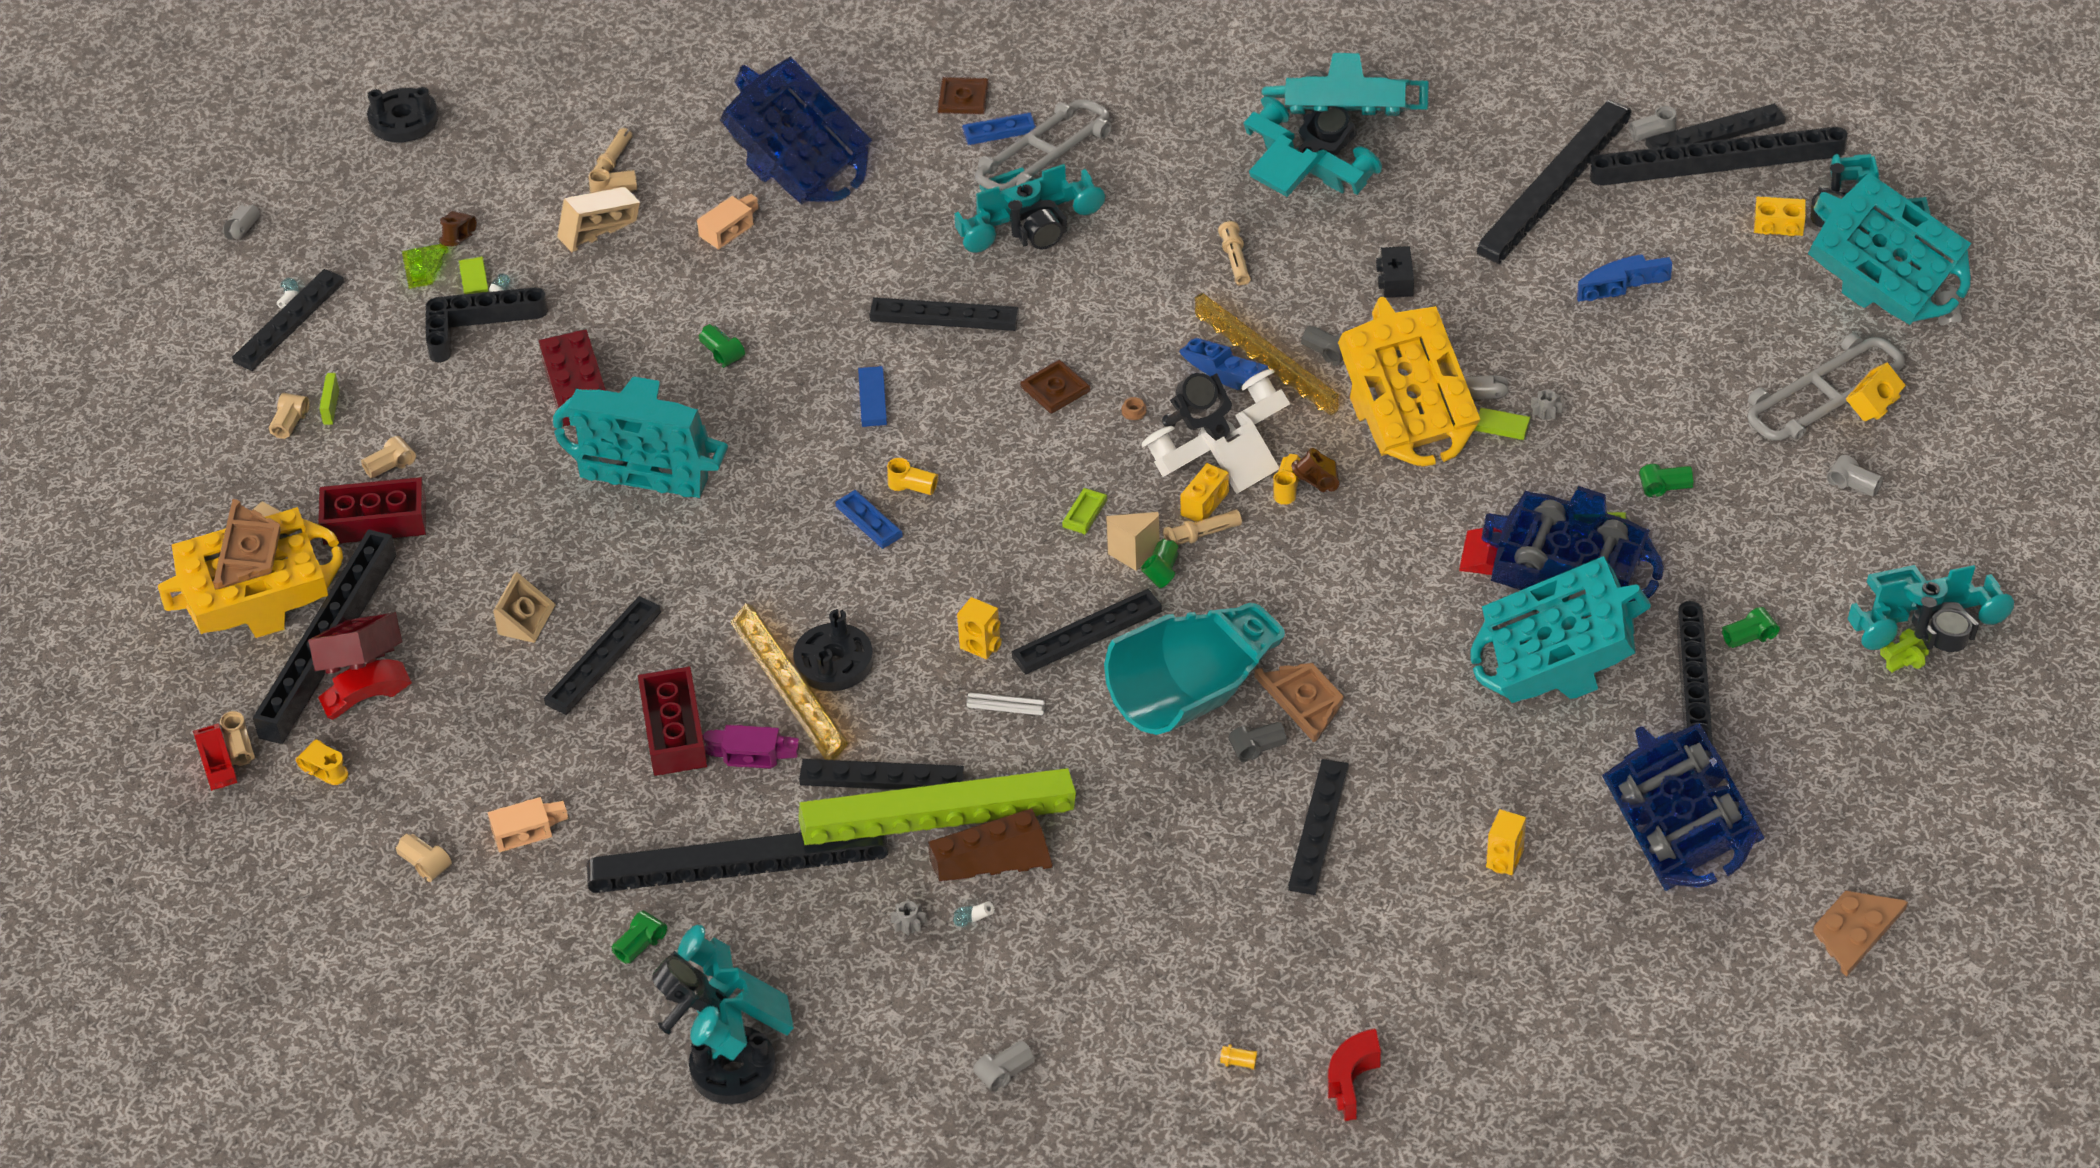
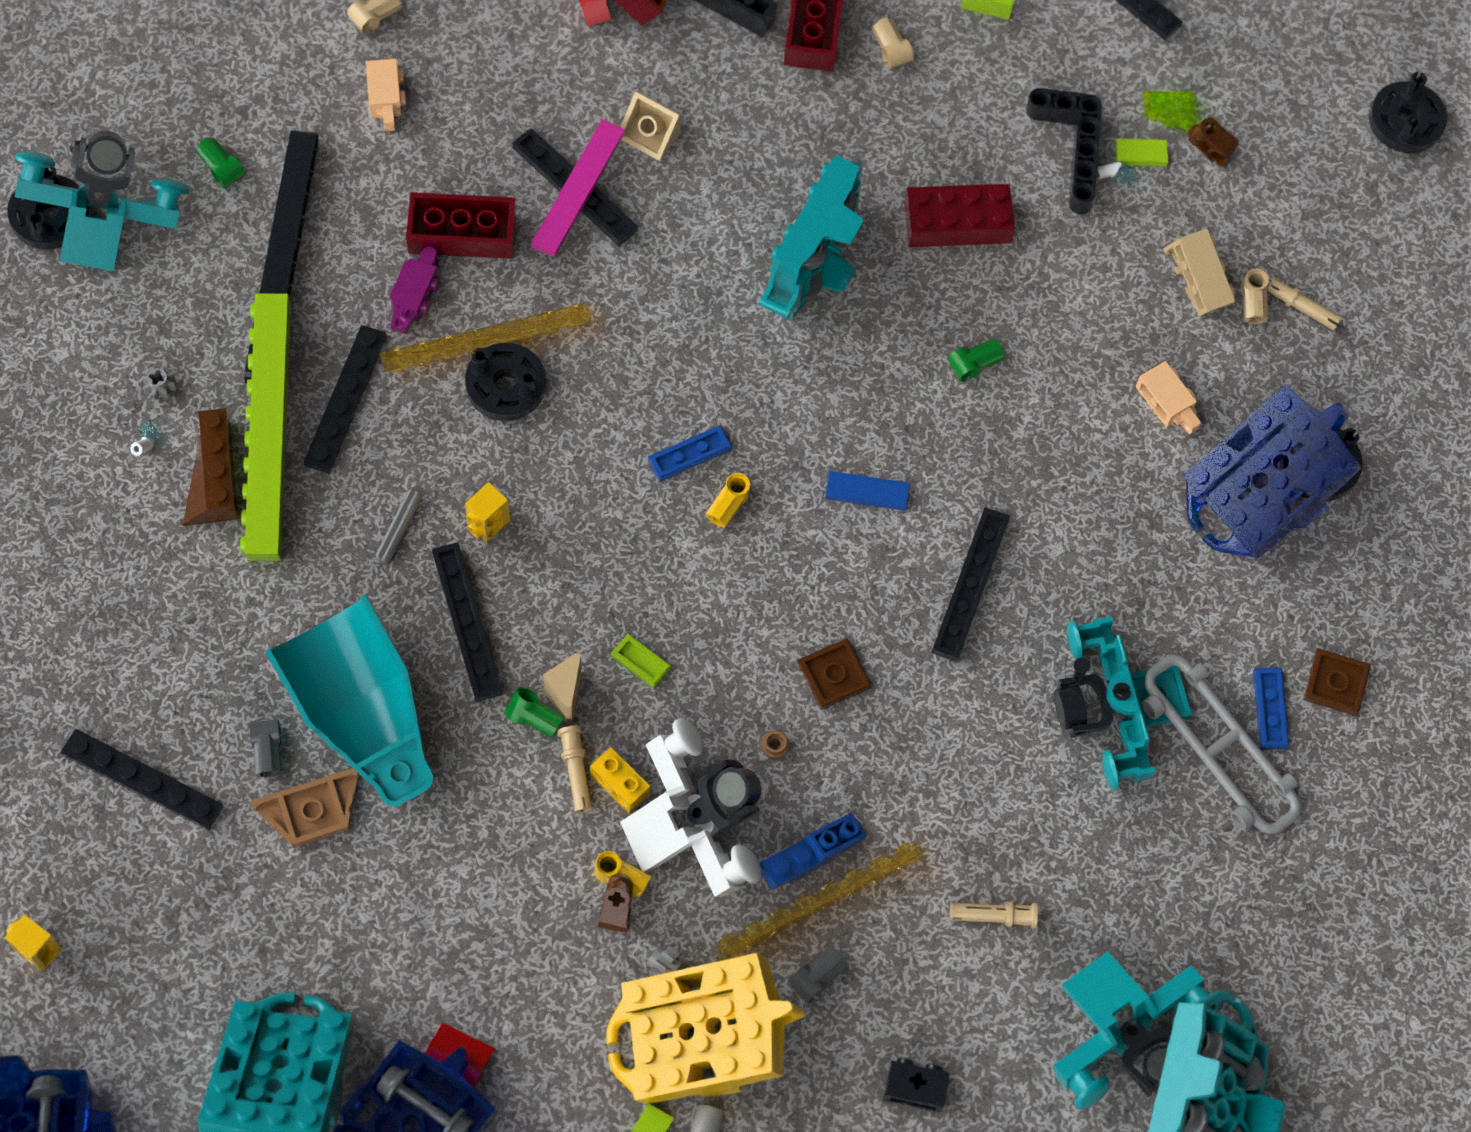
camera: 95 degrees right, 20 degrees up
(608, 642) = (578, 188): none -> dark pink tile
(1356, 434) = (664, 961): none -> light grey gear

